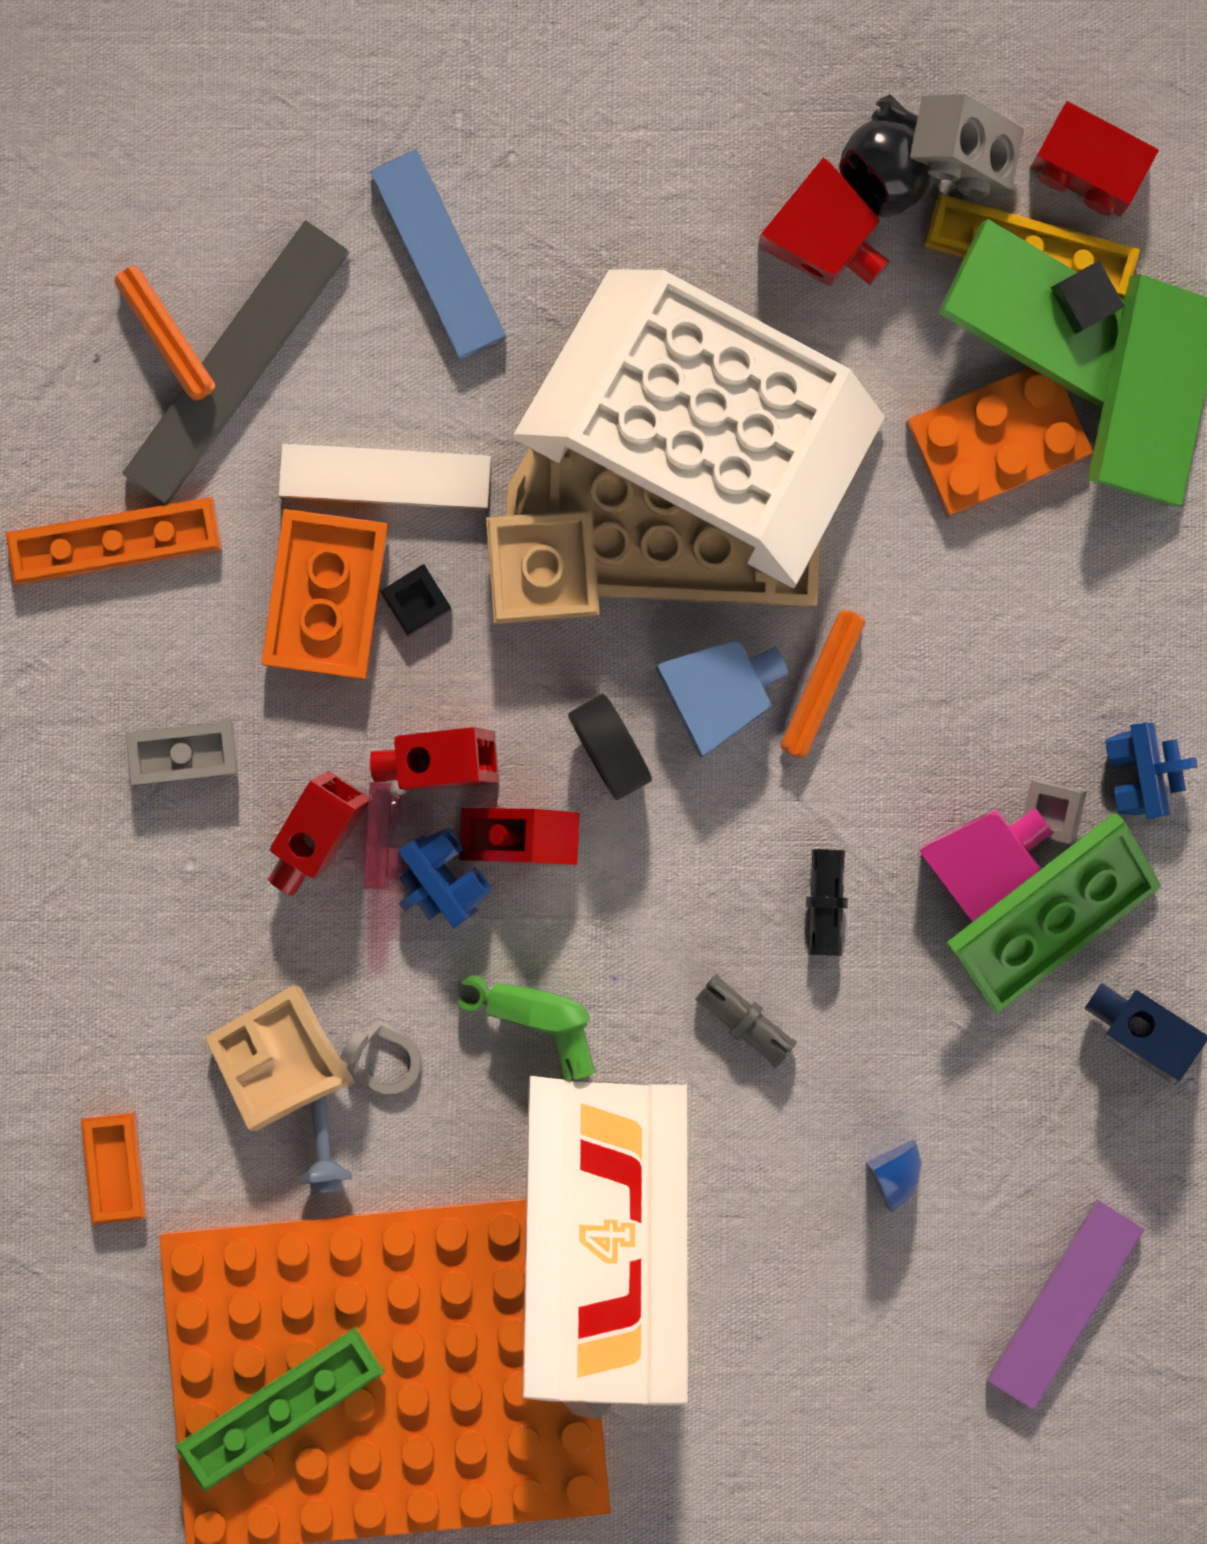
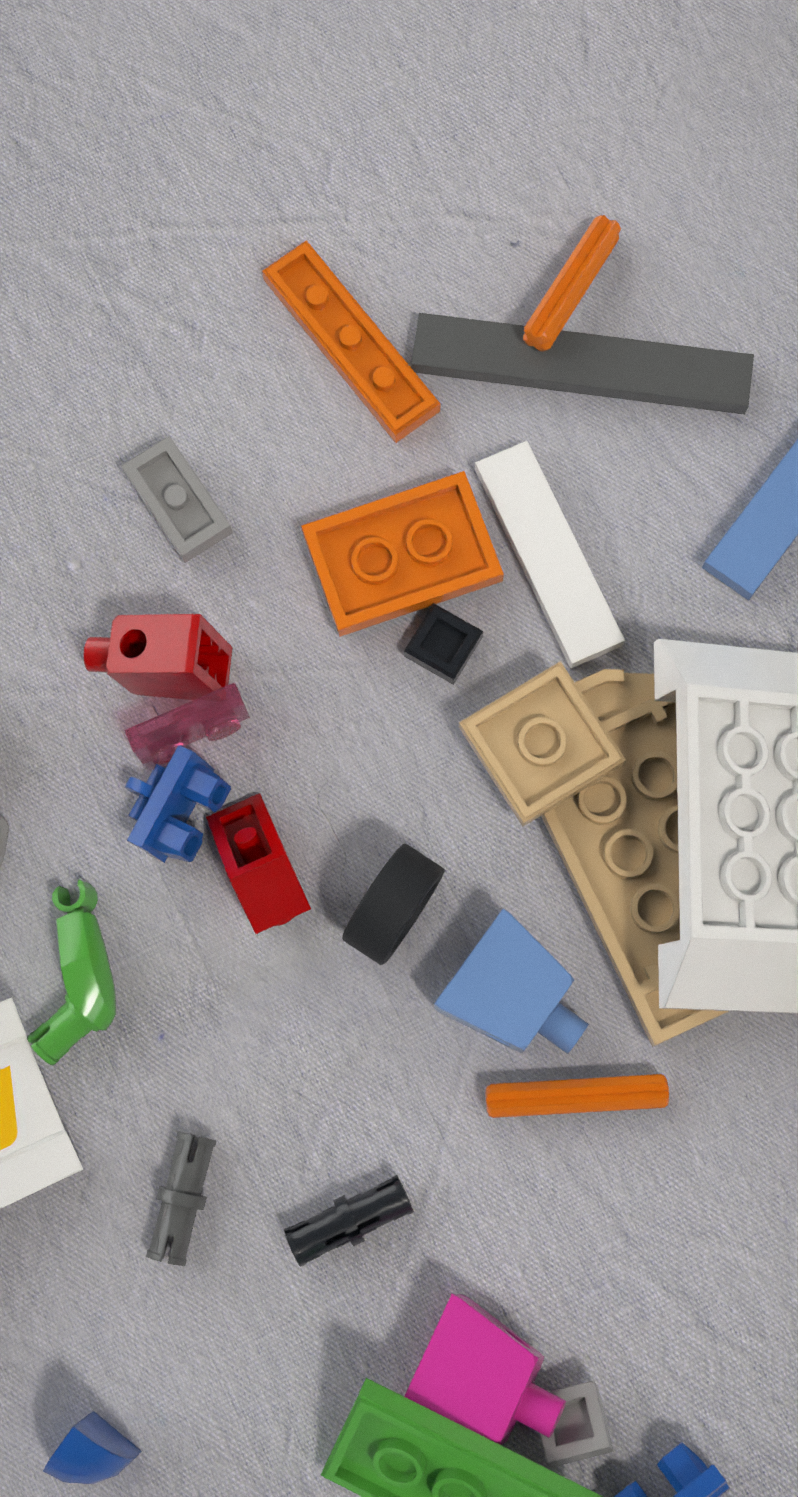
camera: 70 degrees right, 10 degrees down
(456, 760) = (294, 742): red torso -> none

